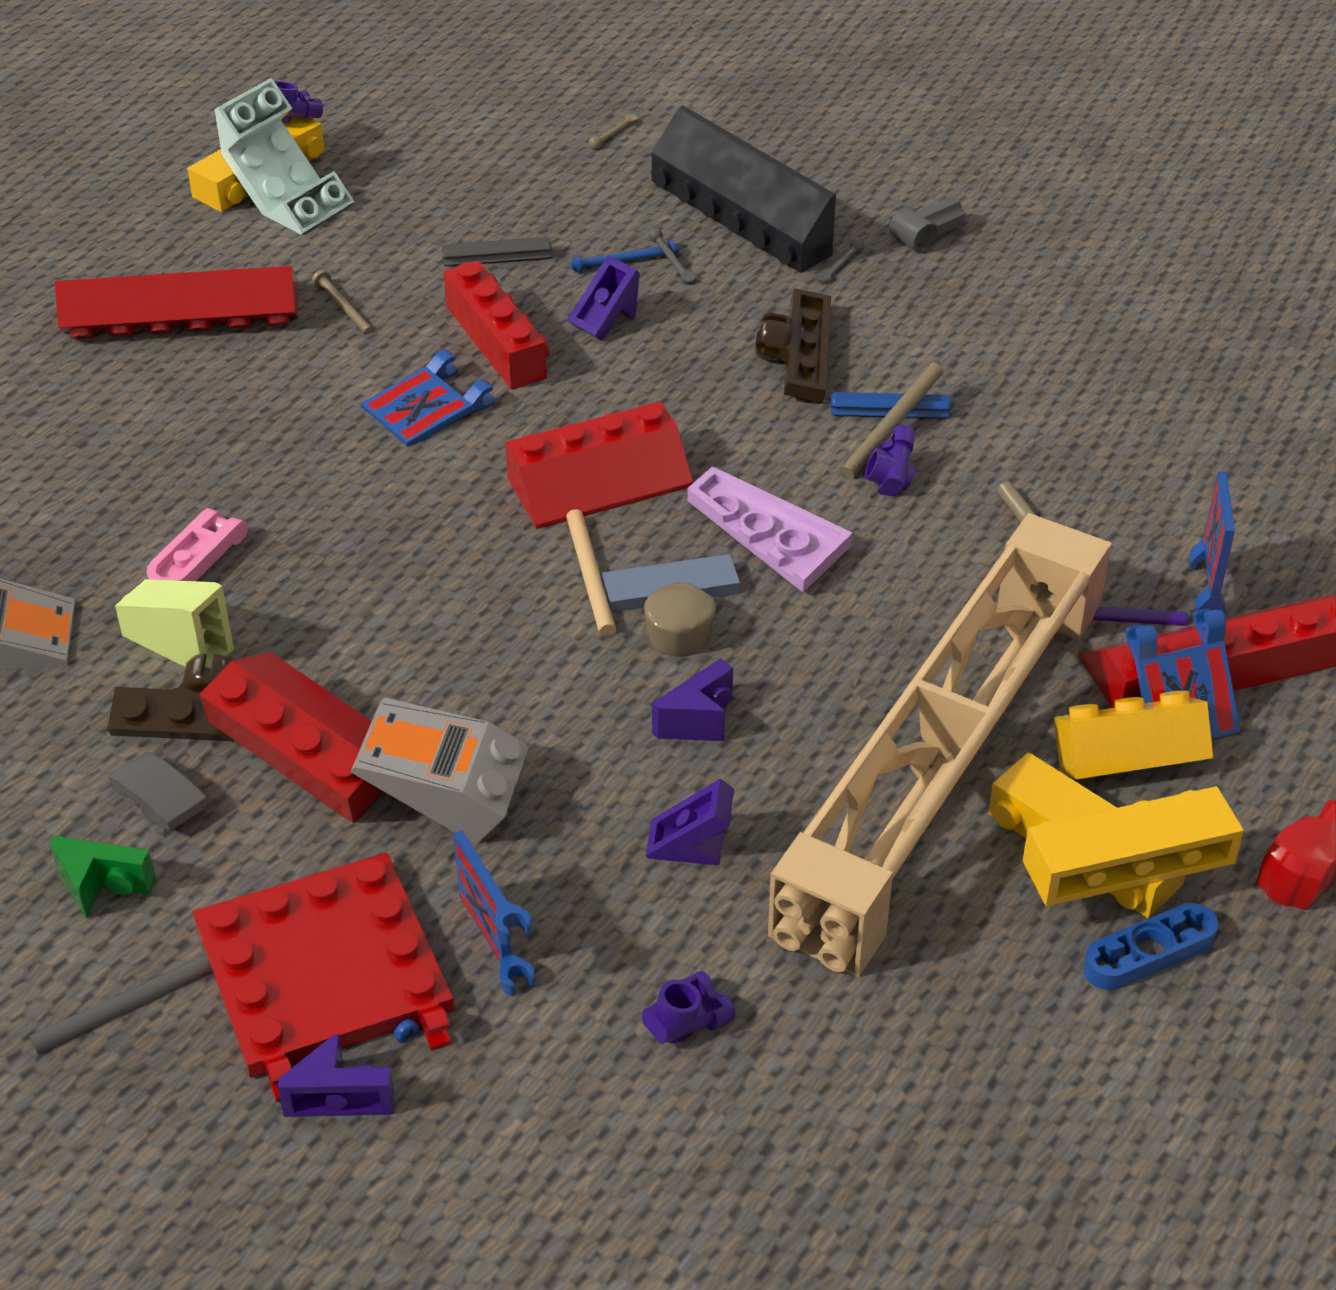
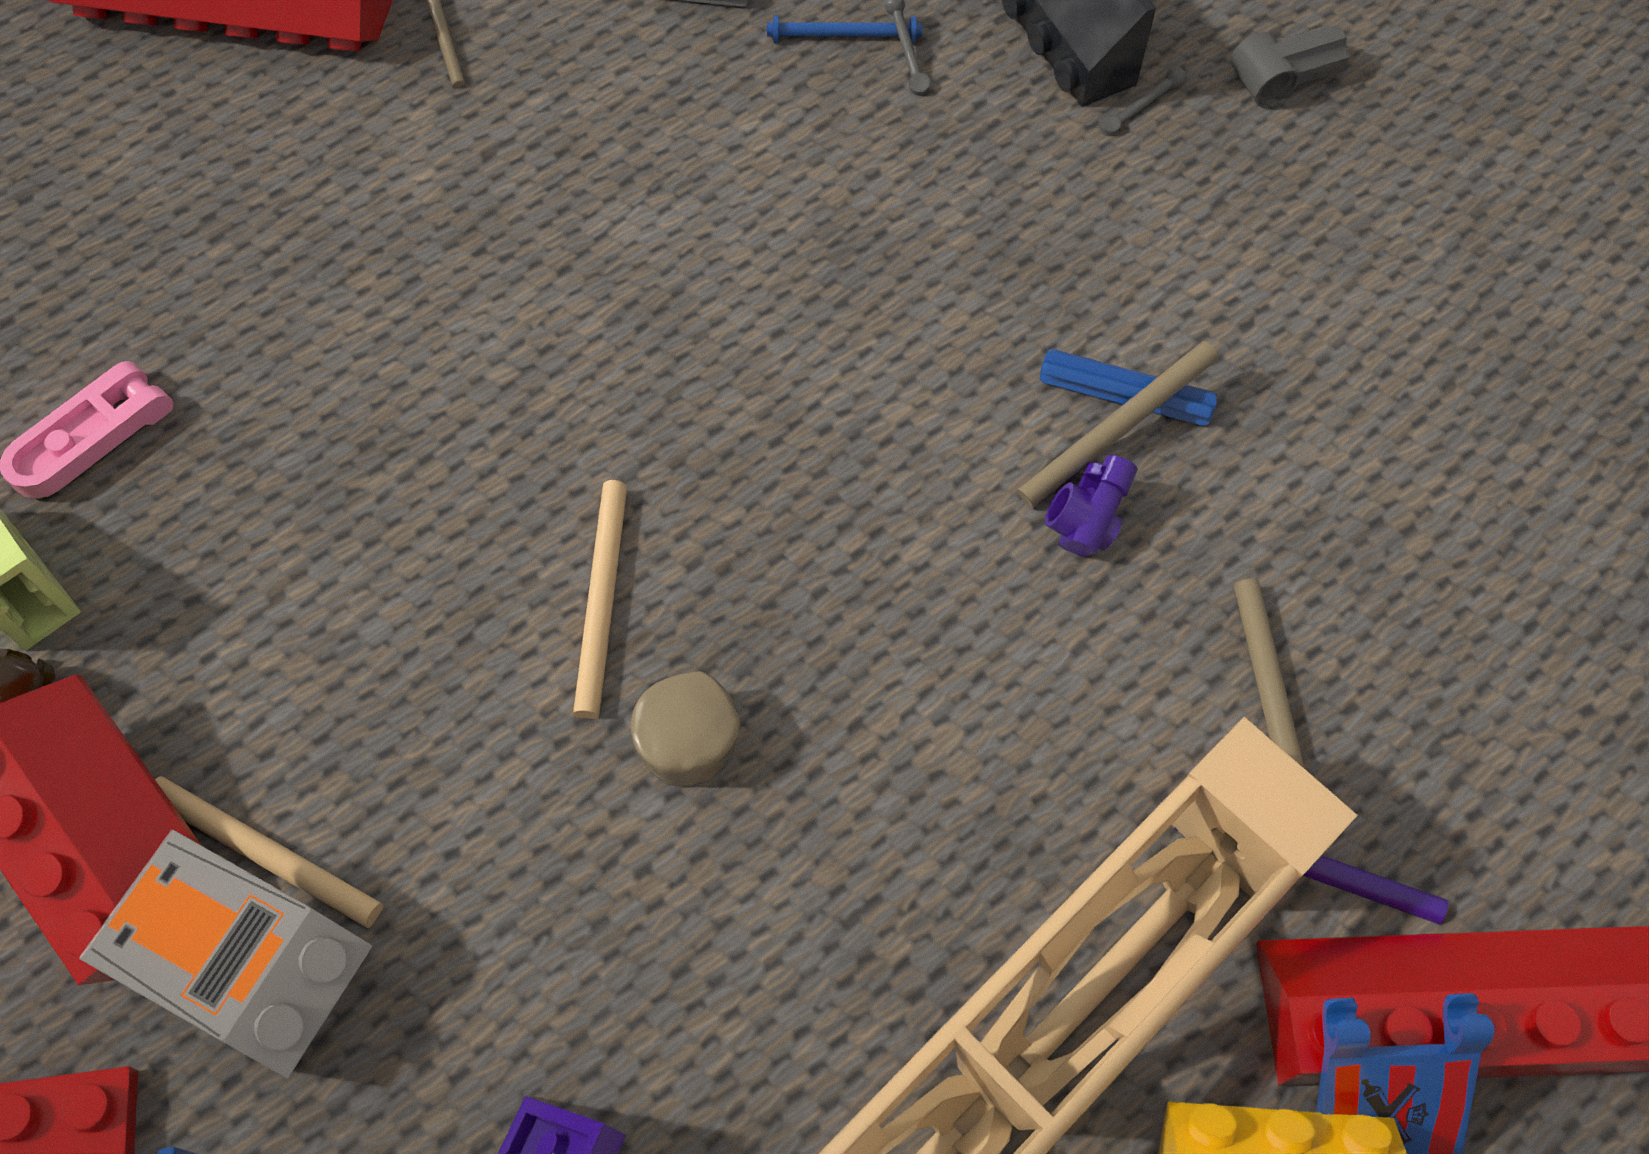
camera: 15 degrees right, 20 degrees up
(425, 402) = (484, 231): blue flag -> none
(496, 324) = (619, 122): red brick -> none
(597, 464) = (670, 410): red slope -> none
(608, 294) = (789, 101): dark purple slope -> none
(631, 587) = (720, 645): sand blue tile -> none
(695, 706) = (633, 911): dark purple slope -> none
(774, 530) = (884, 591): lavender wing -> none
(800, 343) = (1033, 247): dark brown plate -> none
(1215, 546) = (1537, 830): blue flag -> none

